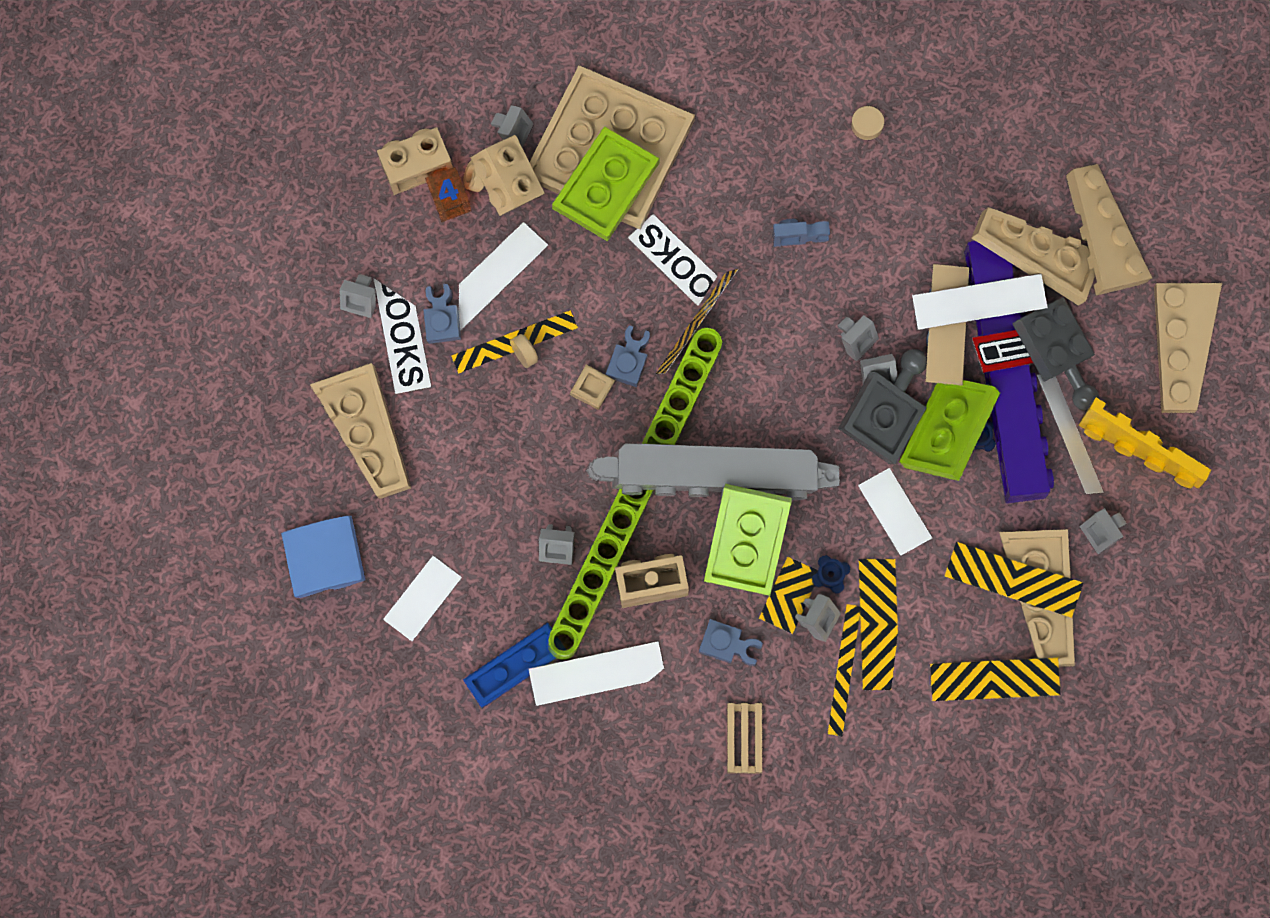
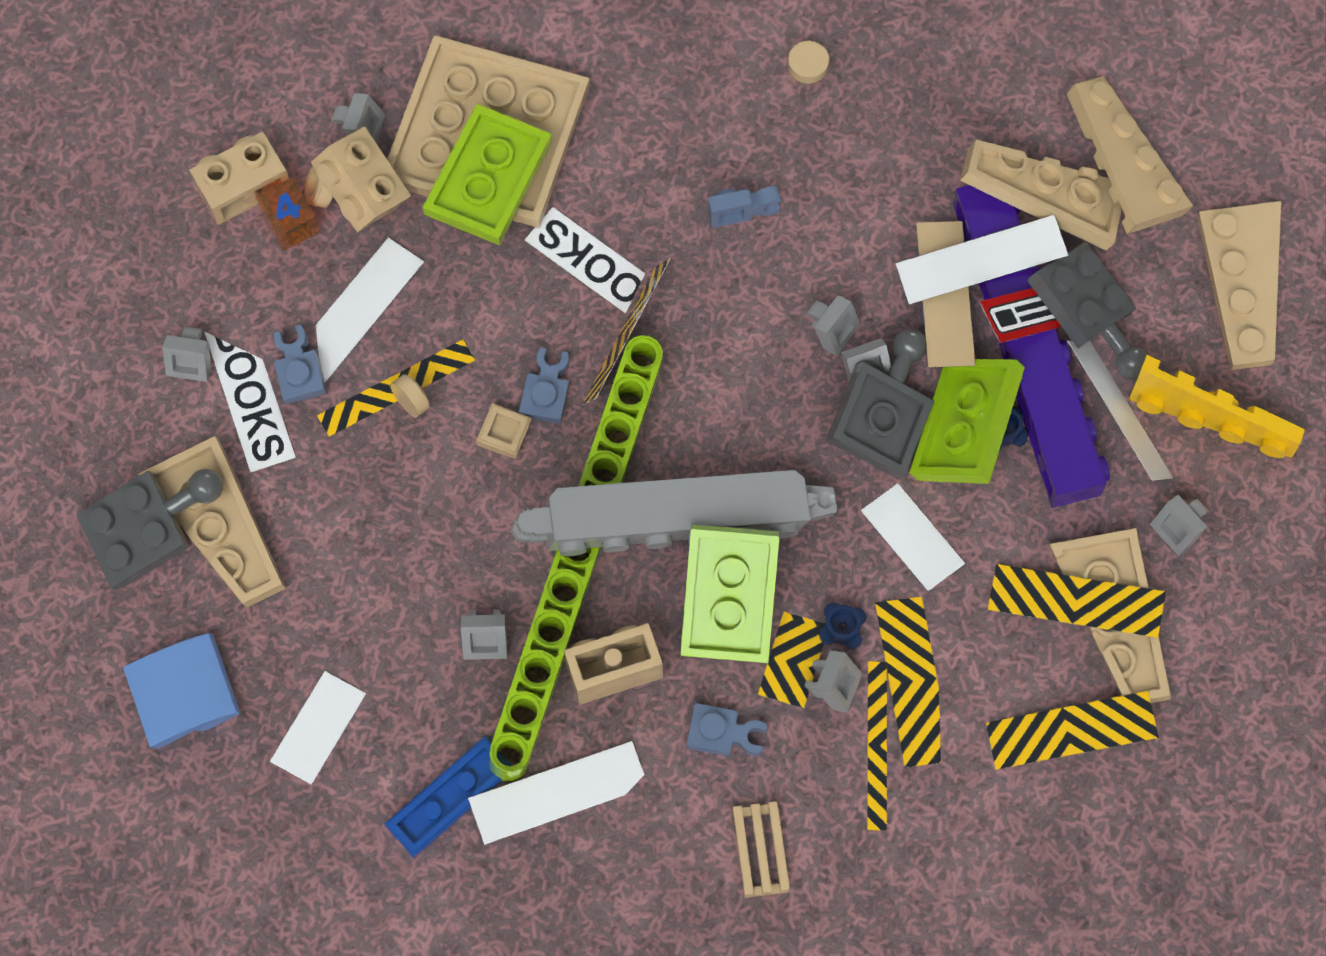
camera: 10 degrees left, 5 degrees down
(305, 424) = (138, 525): none -> dark grey plate

